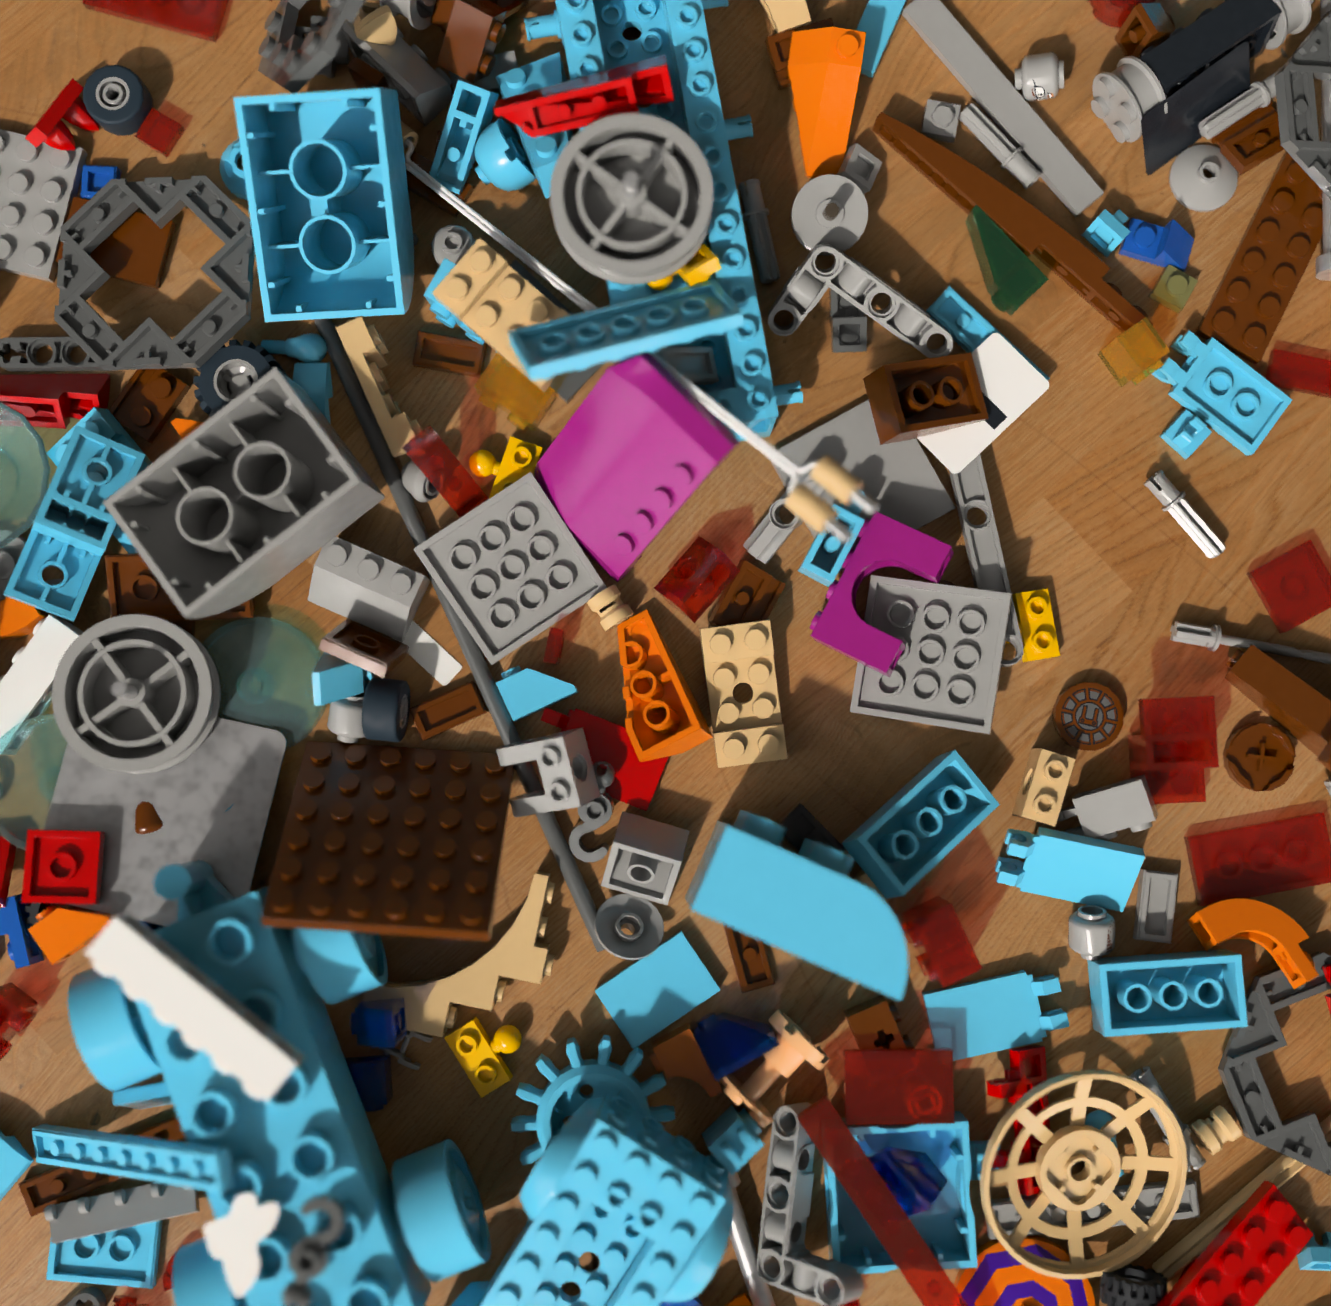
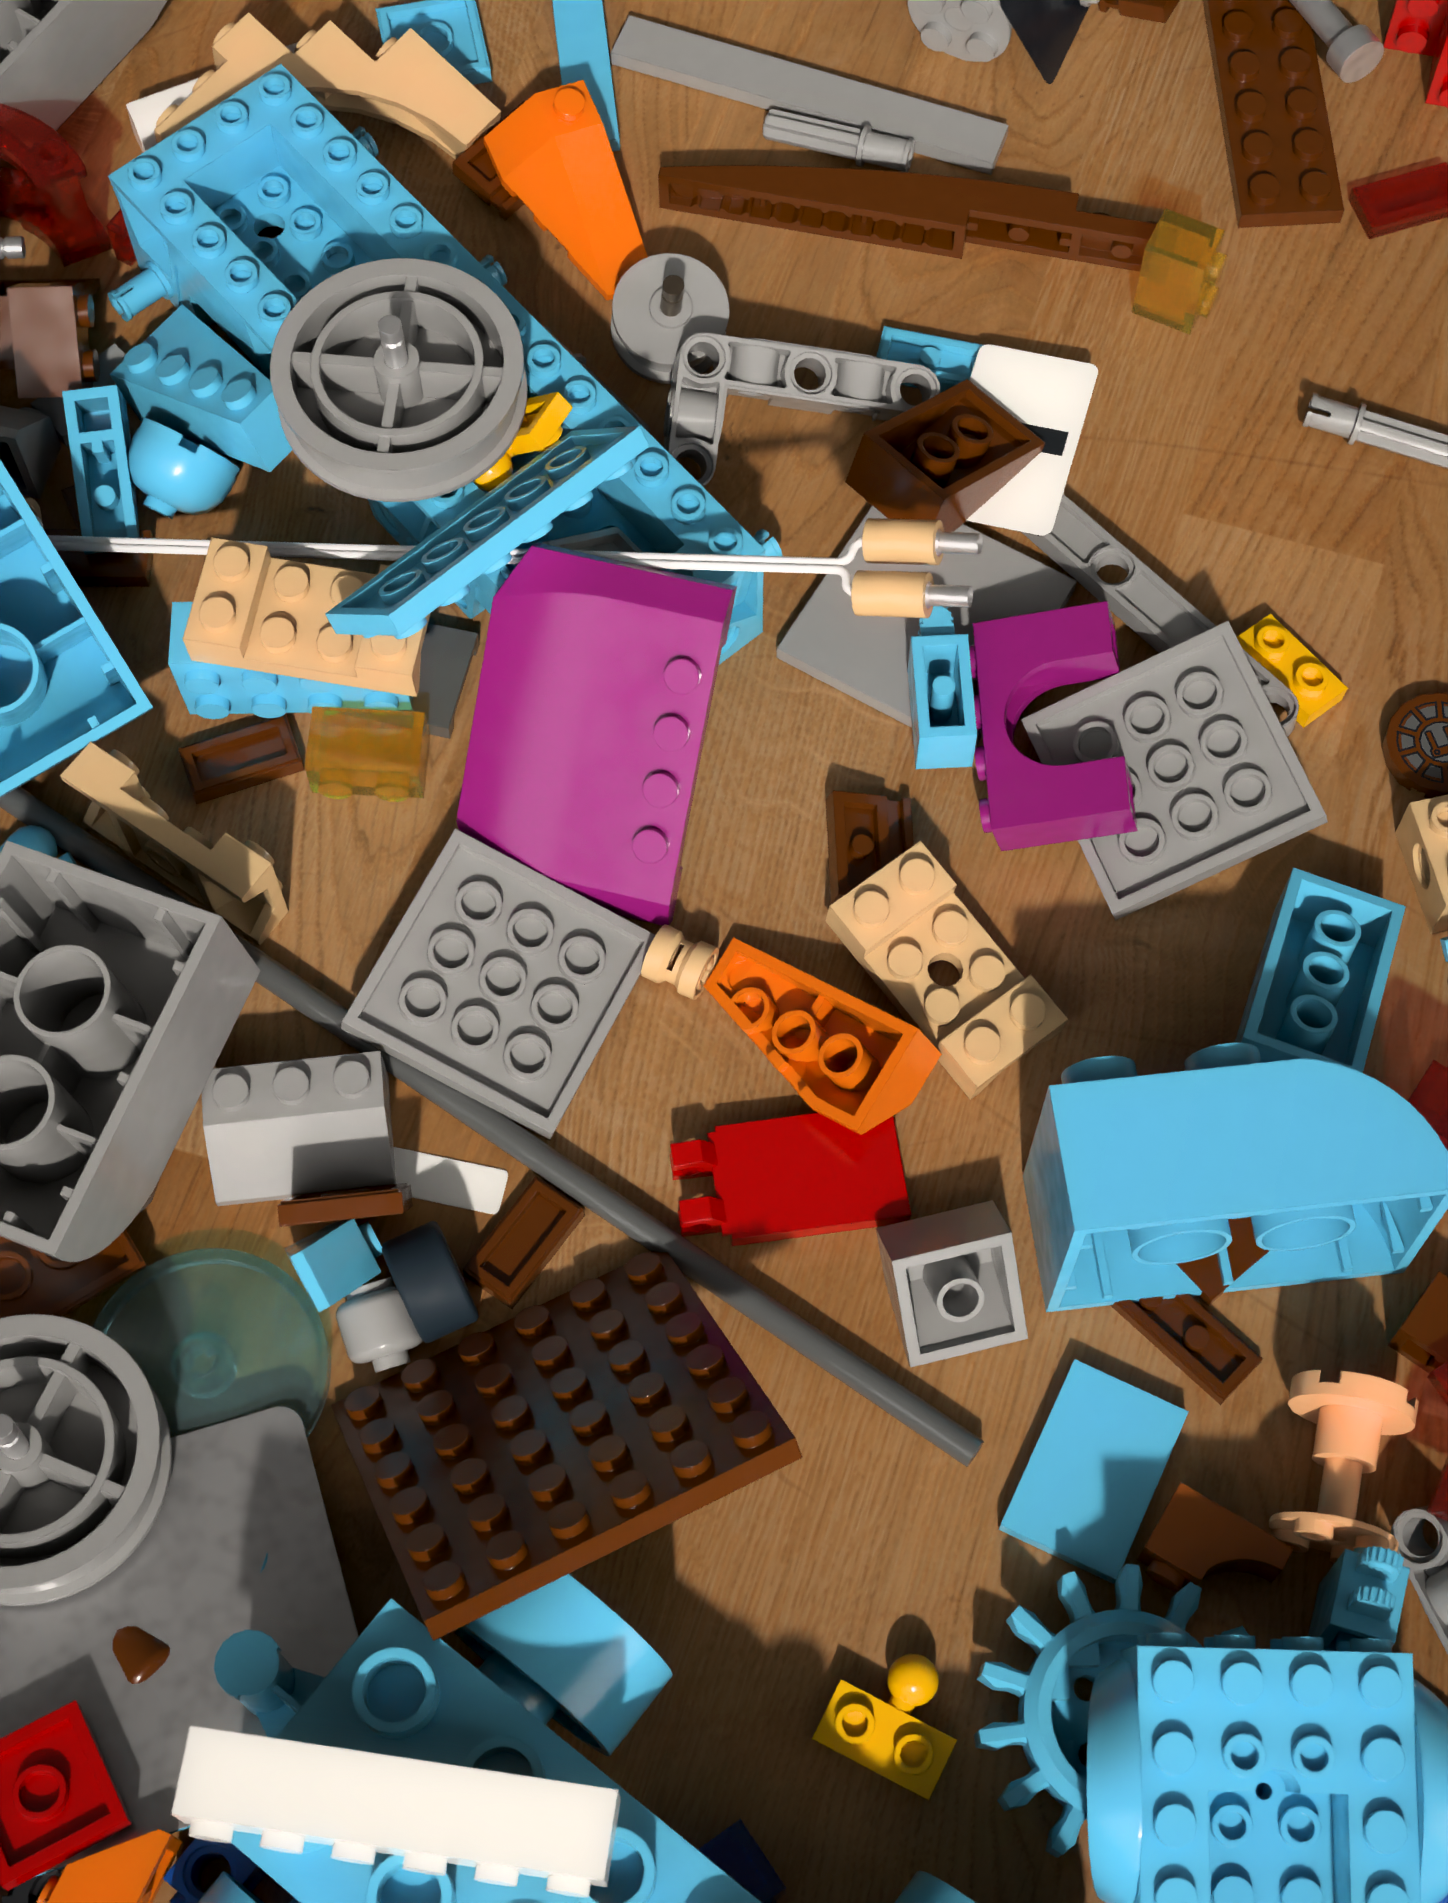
camera: 25 degrees left, 20 degrees down
(379, 1022) = (697, 1739): clear blue slope -> none
(401, 1053) = (727, 1775): light grey piece -> none
(417, 483) = (299, 932): light grey cone -> none
(444, 471) = (327, 892): clear red tile -> none
(451, 243) = (154, 608): light grey head -> none
(479, 983) = (754, 1696): tan arch -> none
(517, 461) = (420, 840): yellow plate -> none
(531, 691) = (633, 1137): medium azure slope -> none
(554, 646) = (630, 1057): clear red tile -> none
(563, 767) = (754, 1198): light grey brick -> none
(589, 98) = (259, 305): red wedge -> none
(593, 816) = (834, 1251): dark grey piece -> none
(634, 914) = (992, 1392): light grey dish -> none
(697, 579) = (781, 852): clear red brick -> none
(732, 1041) = (1257, 1462): clear blue slope -> none
(772, 531) = (850, 735): light grey piece -> none
(847, 325) = (775, 436): dark grey slope -> none
(860, 167) = (669, 238): light grey plate -> none
(940, 120) = (741, 146): light grey plate -> none
(1005, 269) = (938, 266): clear green slope -> none
(1040, 76) = (837, 38): light grey head -> none
(1107, 231) = (1044, 161): medium azure tile -> none
(1157, 243) = (1120, 151): blue slope -> none
(1173, 288) = (1174, 187): olive plate -> none
(1186, 433) = (1313, 340): medium azure tile -> none
(1195, 189) = (1120, 55): light grey dish -> none
(1223, 391) = (1322, 268): medium azure tile -> none

